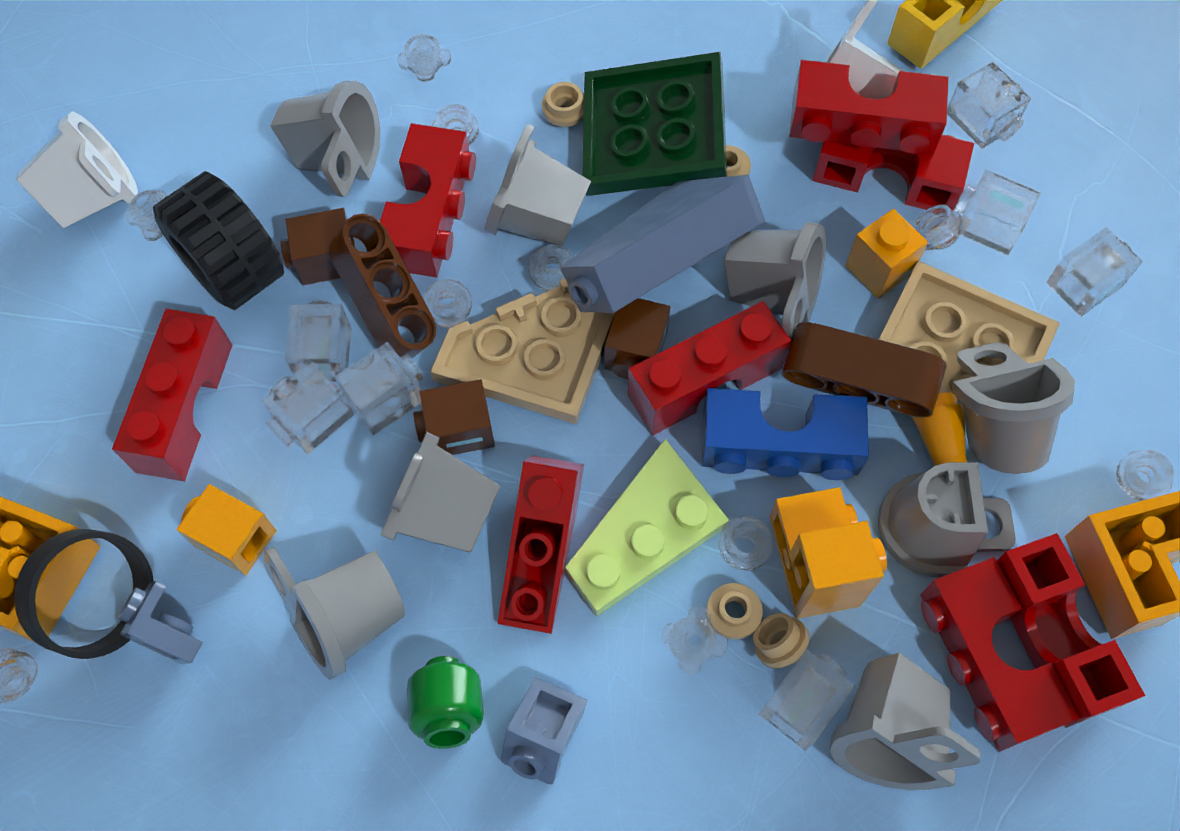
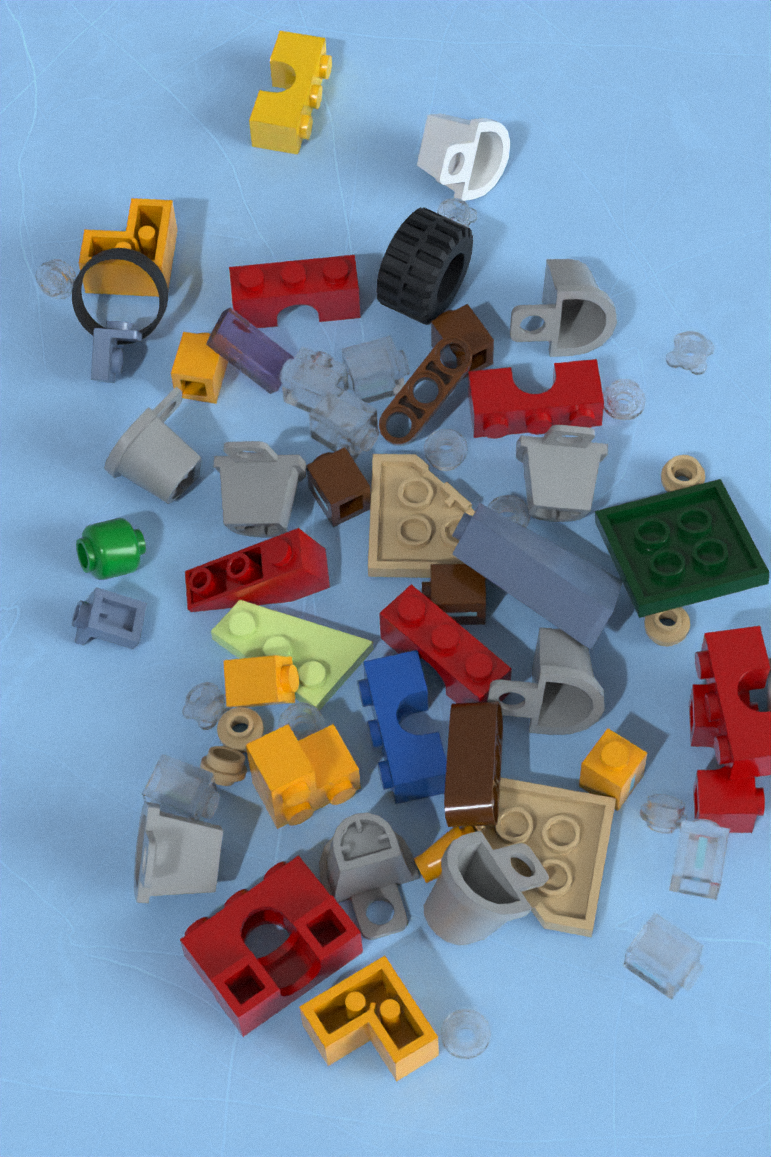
camera: 75 degrees right, 5 degrees down
(234, 463) = (248, 350): none -> clear purple tile
(695, 565) = (260, 681): none -> light orange brick

